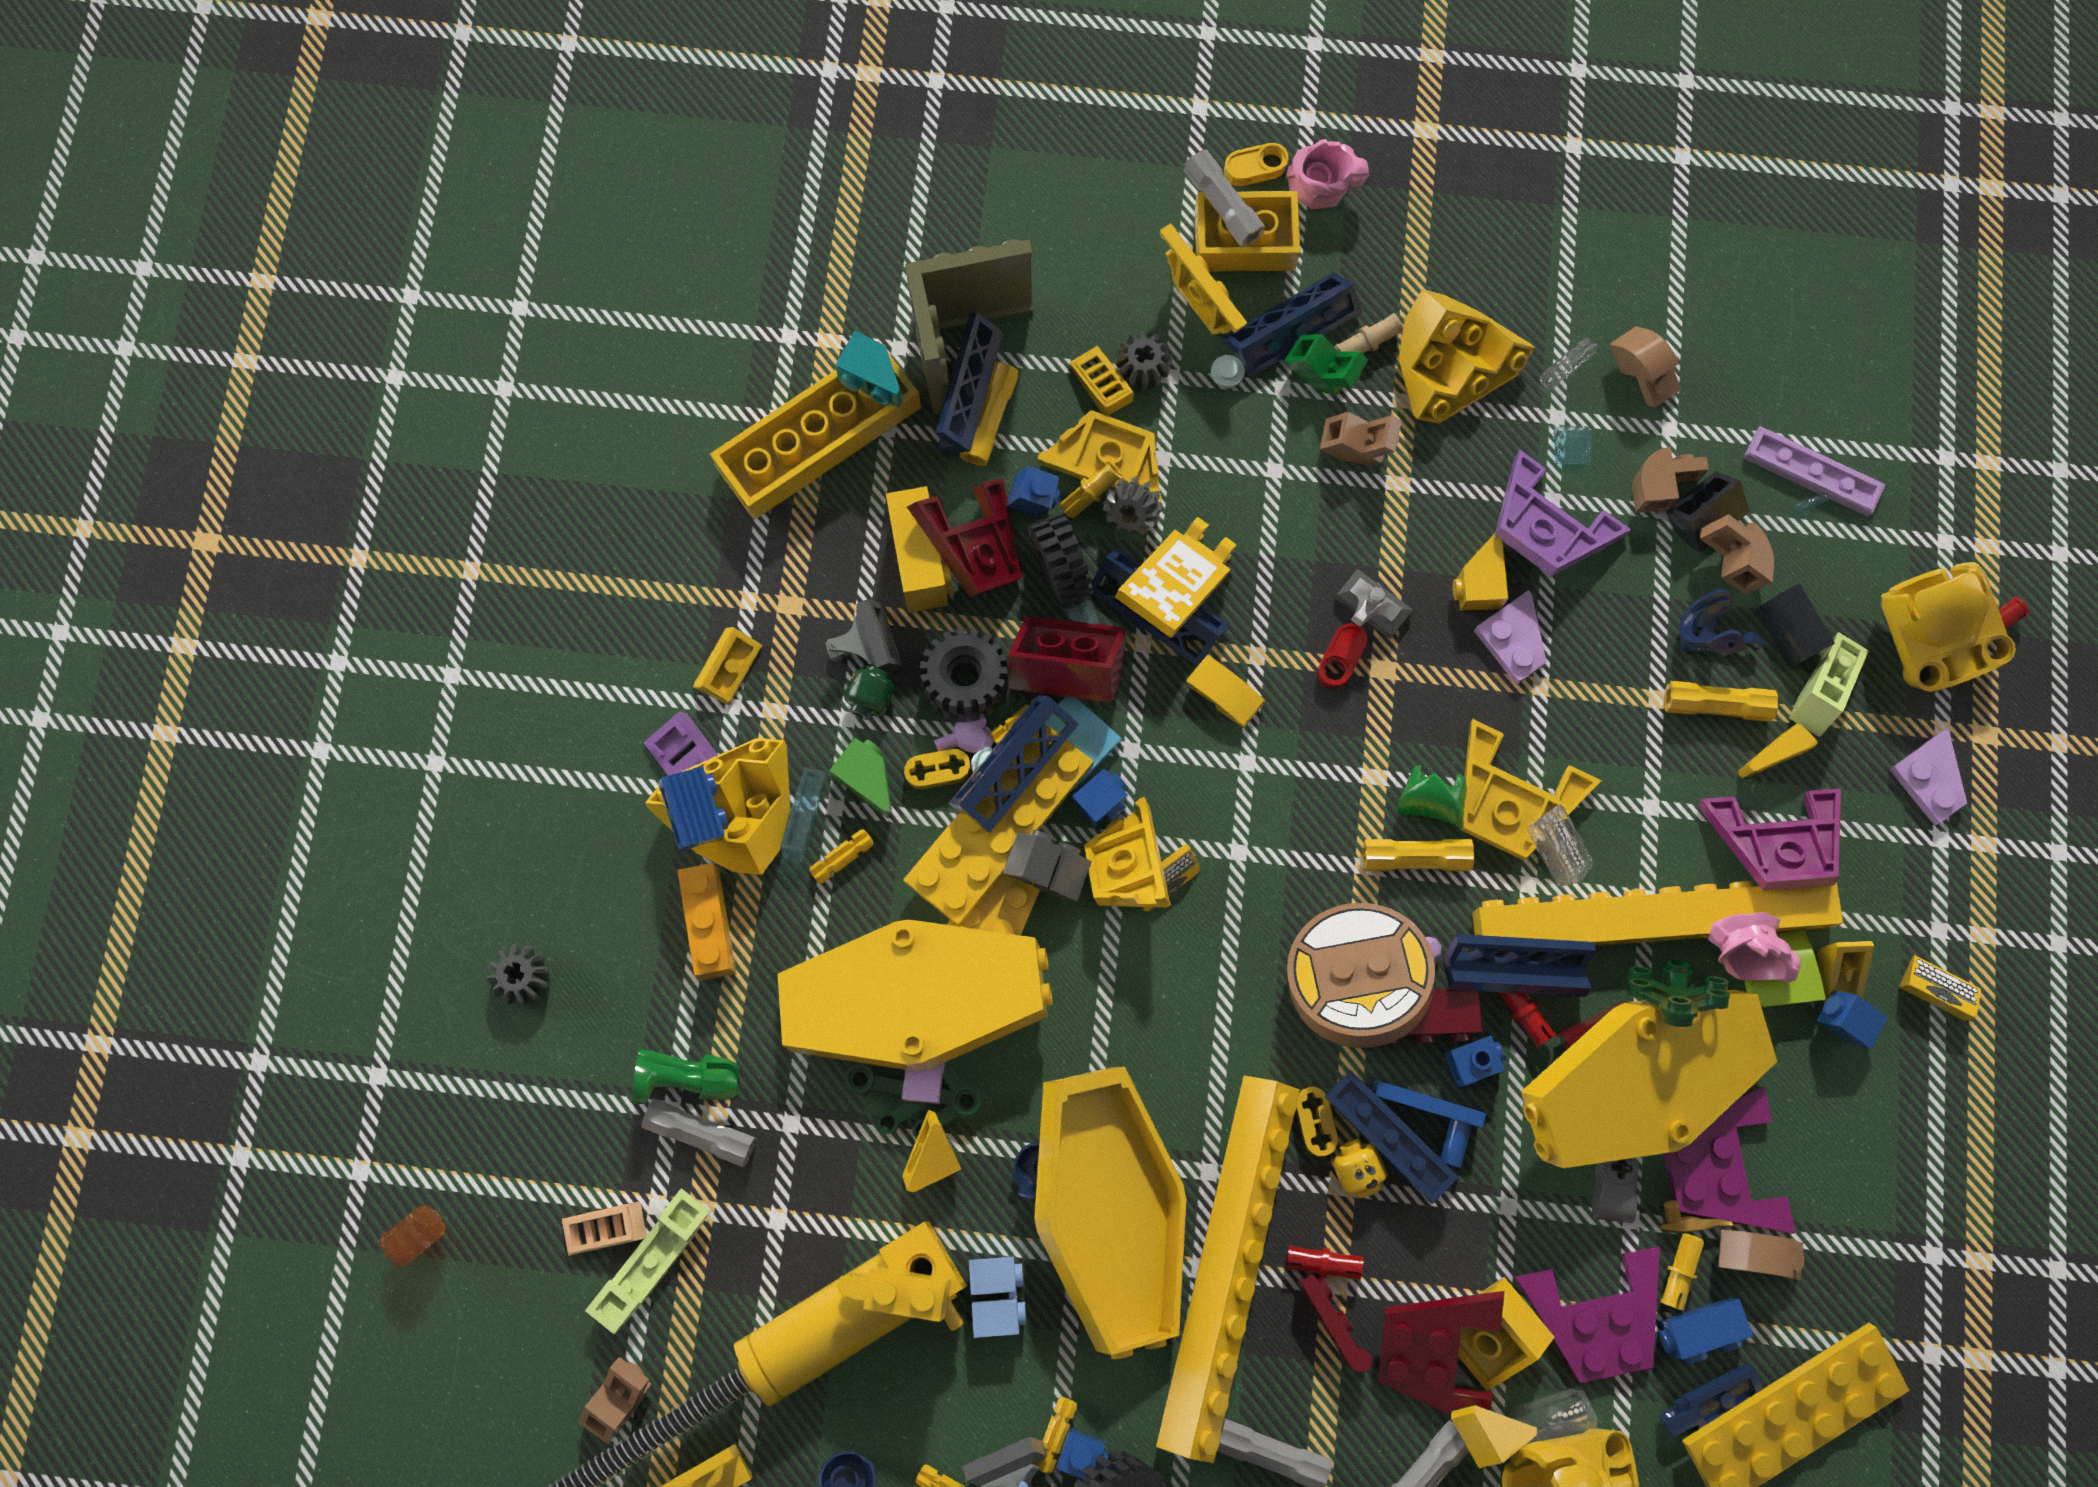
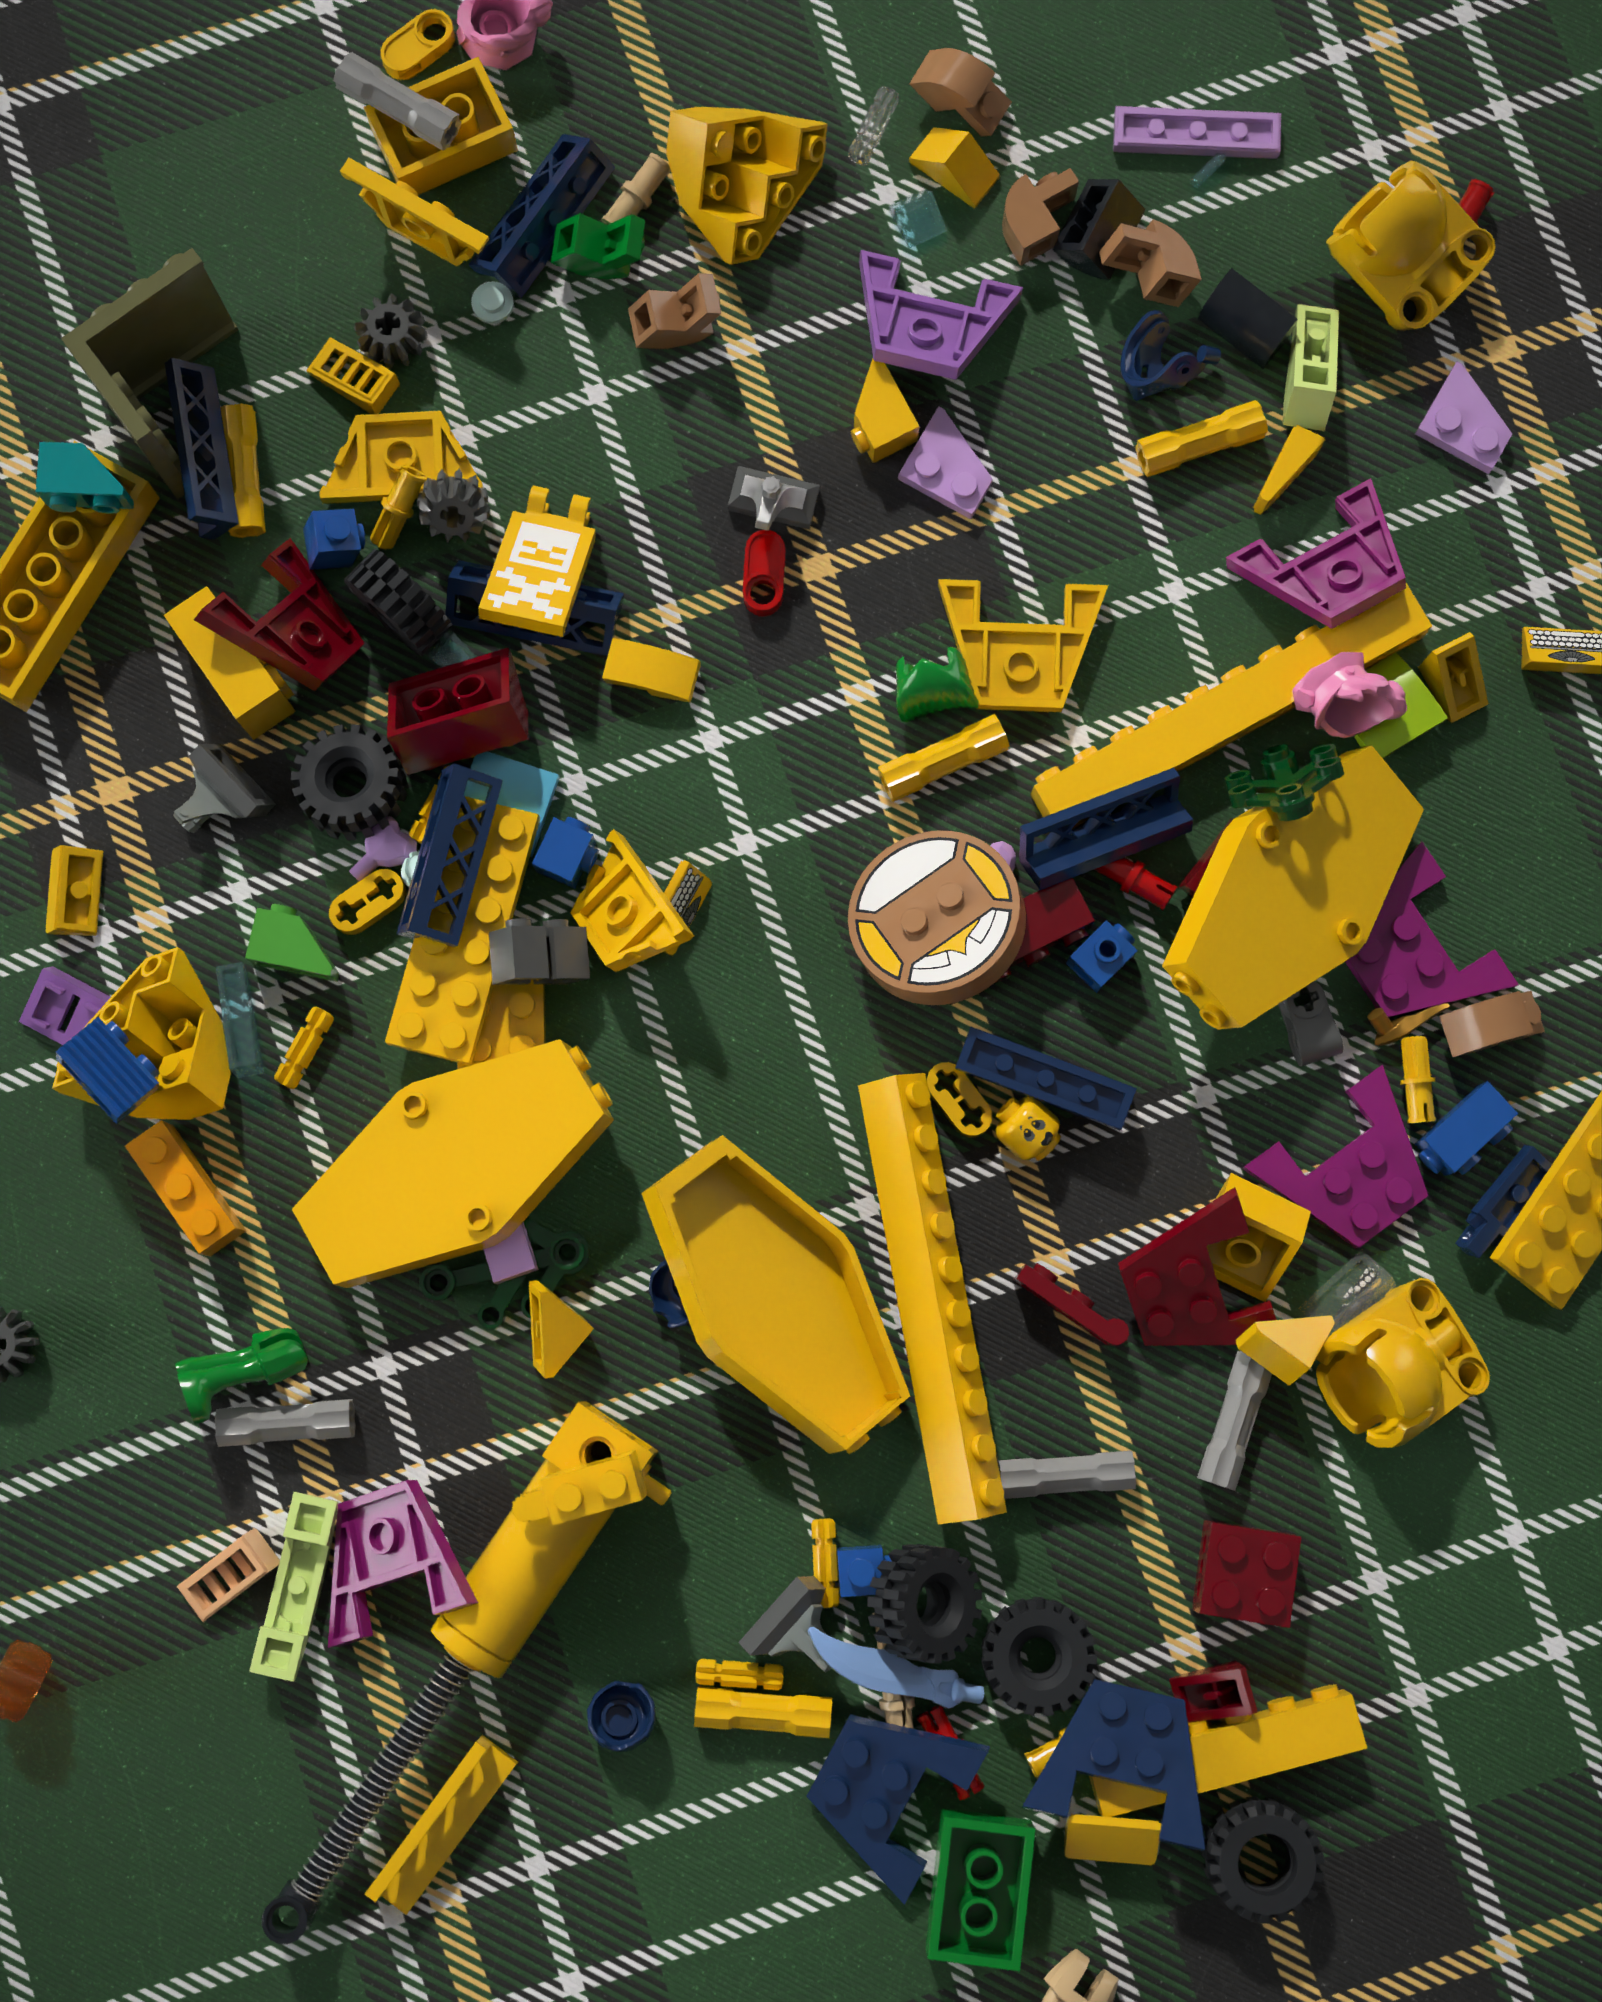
camera: 25 degrees left, 5 degrees up
(615, 1400) = (328, 1751): medium nougat brick -> none
(729, 1258) = (384, 1541): none -> magenta wing
(869, 692) = (250, 849): dark green head -> none
(1002, 1315) = (706, 1466): light blue piece -> none
(1324, 1262) = (1033, 1246): red pin -> none
(1460, 1118) = (1112, 1023): blue piece -> none
(1561, 847) = (1095, 678): clear slope -> none
(1619, 417) = (956, 164): none -> yellow slope
(1852, 1019) = (1484, 726): blue brick -> none

